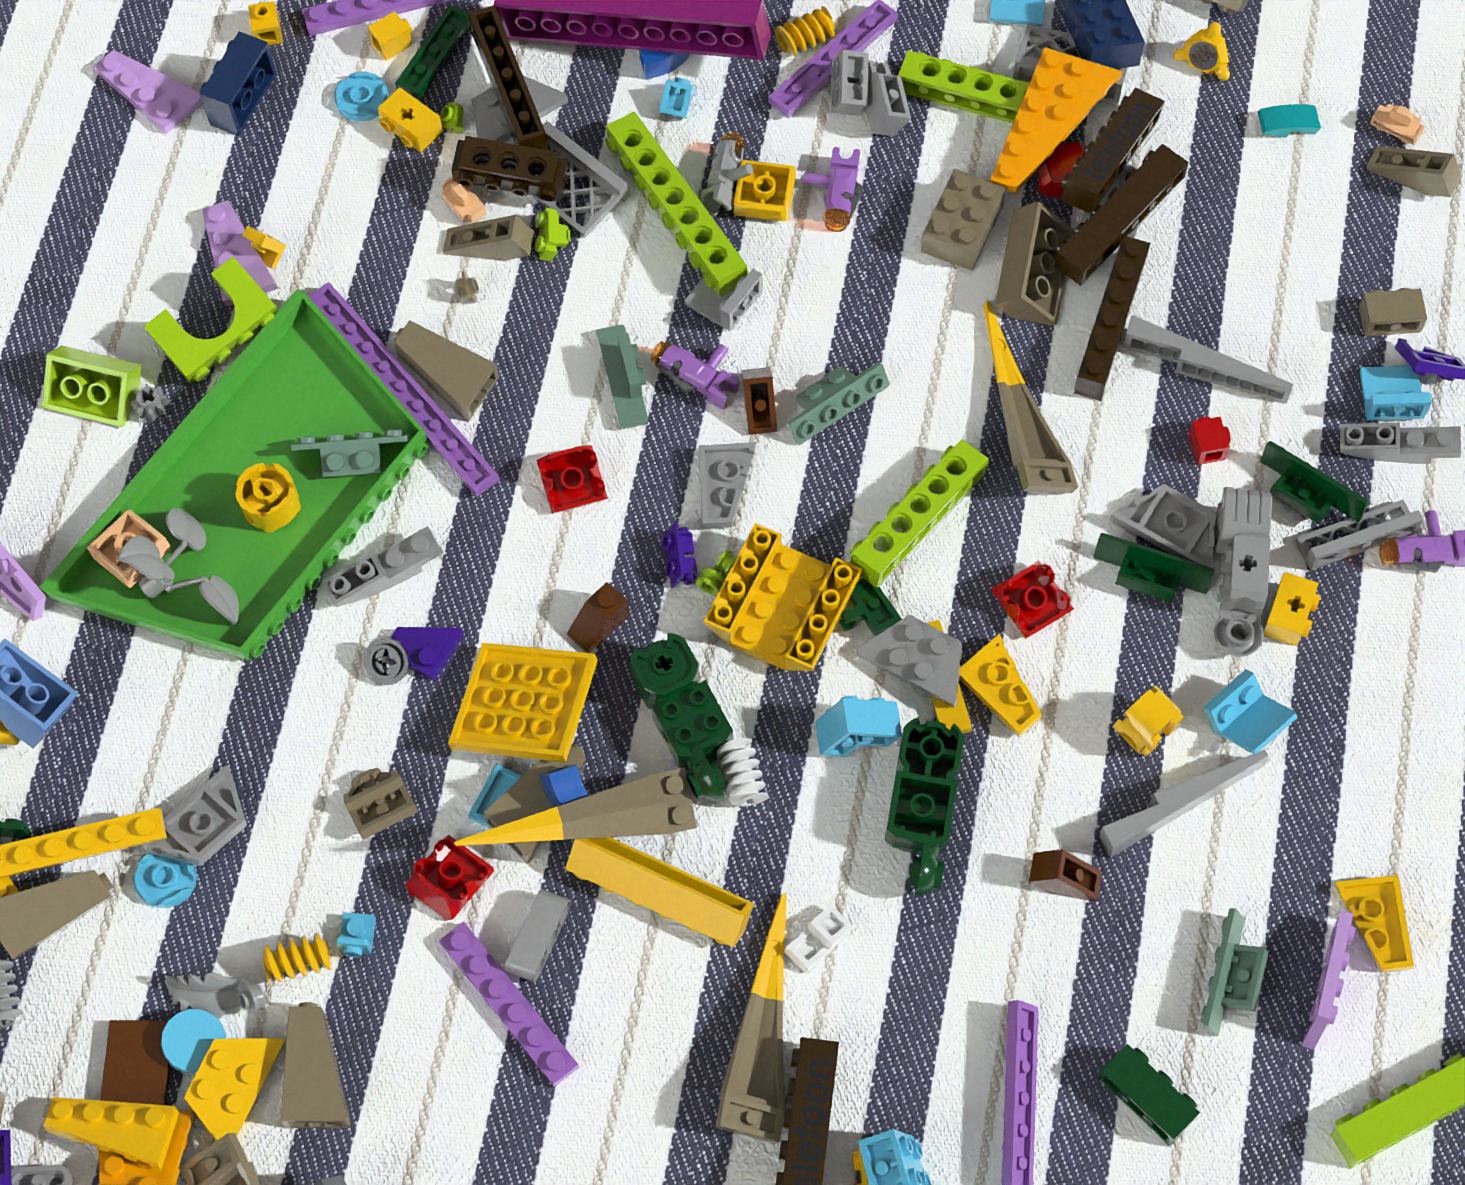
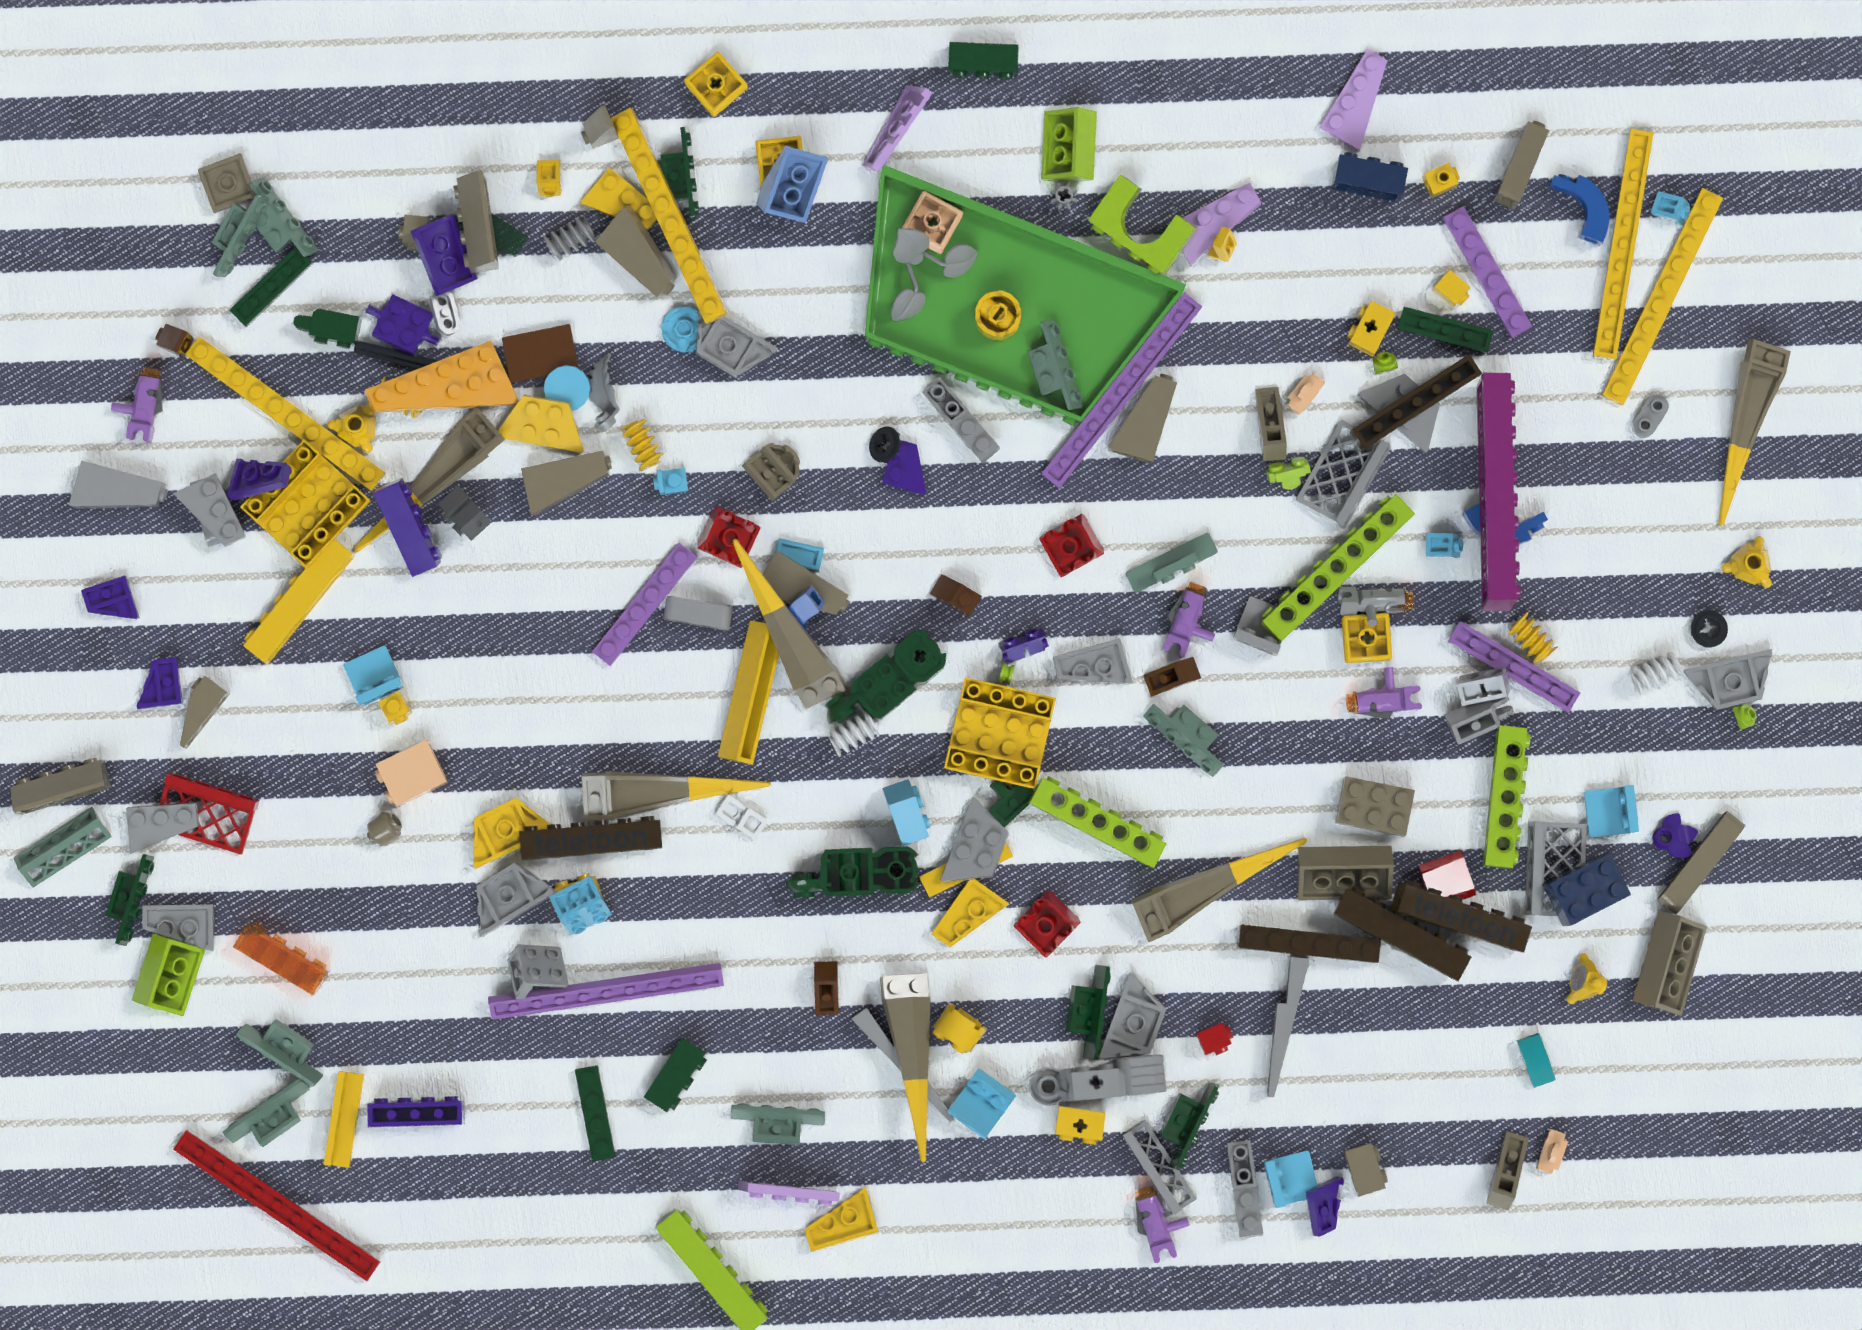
camera: 75 degrees right, 20 degrees up
(122, 1127) = (492, 355): yellow wing -> none
(368, 96) = (1390, 280): medium azure tile -> none
(467, 287) = (1223, 418): dark tan plate -> none
(510, 168) = (1341, 461): dark brown brick -> none
(523, 702) = (871, 557): yellow plate -> none
(725, 562) = (1023, 683): lime bush -> none
(1052, 107) = (1497, 861): light orange wing -> none
(1124, 779) = (908, 1016): none -> dark tan plate

